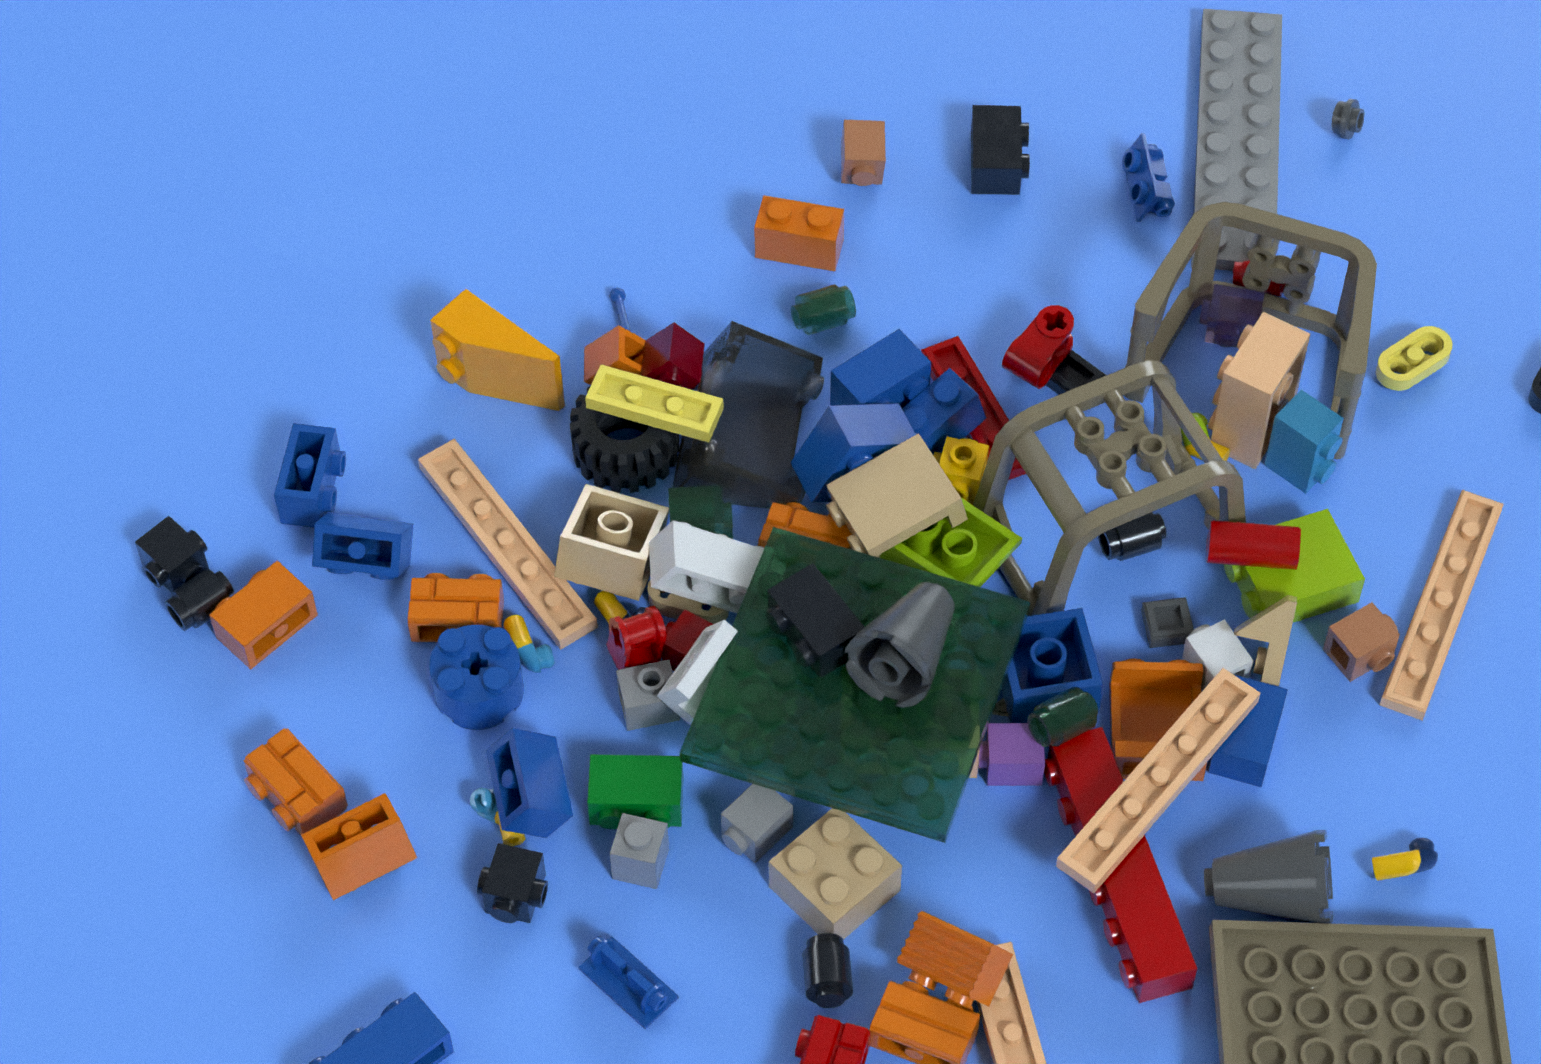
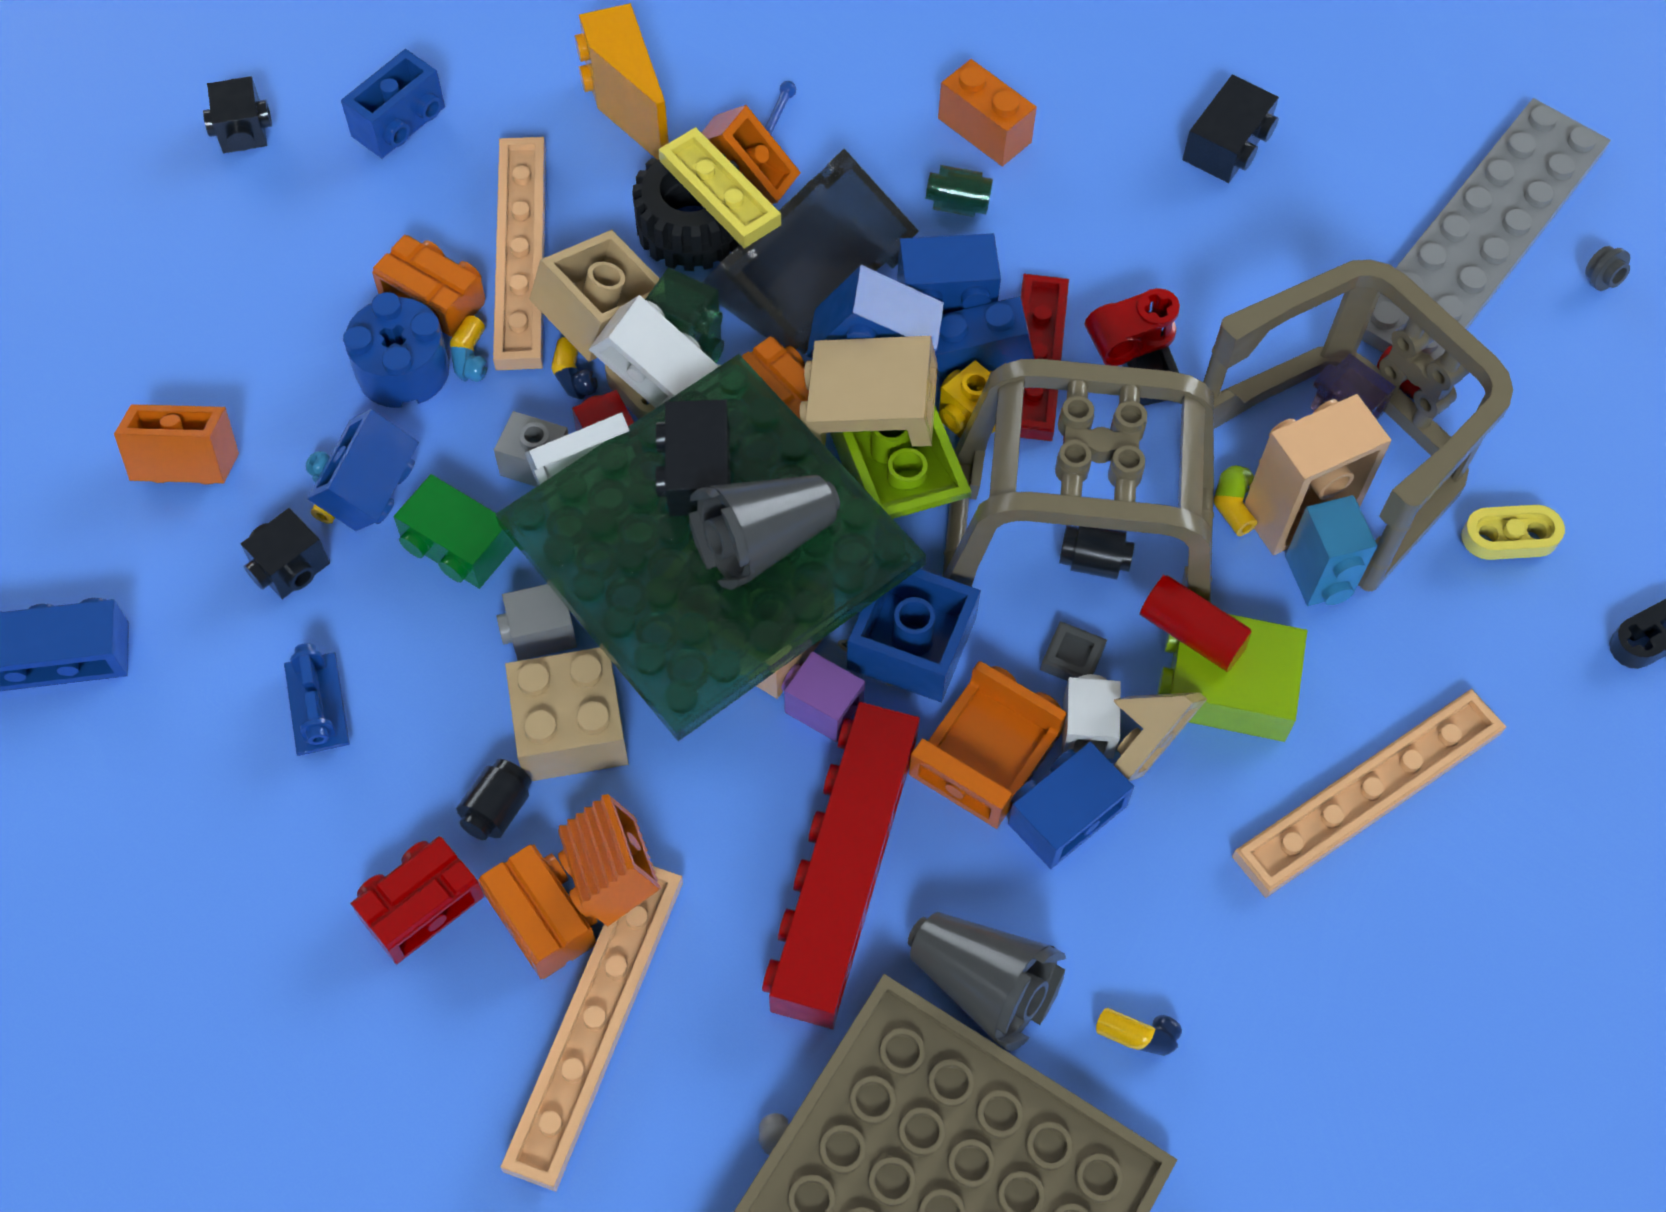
camera: 30 degrees right, 5 degrees up
(198, 598) = (229, 162): black brick -> none
(263, 614) = (268, 203): orange brick -> none
(294, 783) = (175, 358): orange brick -> none
(362, 545) = (391, 186): blue brick -> none
(636, 638) = (549, 392): red piece -> none
(639, 851) = (412, 587): light grey brick -> none
(673, 357) = (779, 164): dark red brick -> none
(863, 152) = (1099, 68): nougat brick -> none
(1063, 717) = (881, 685): clear green brick -> none
(1143, 168) = (1366, 212): blue hinge -> none
(1157, 780) = (929, 801): light nougat plate -> none
(1362, 642) = (1254, 783): nougat brick -> none

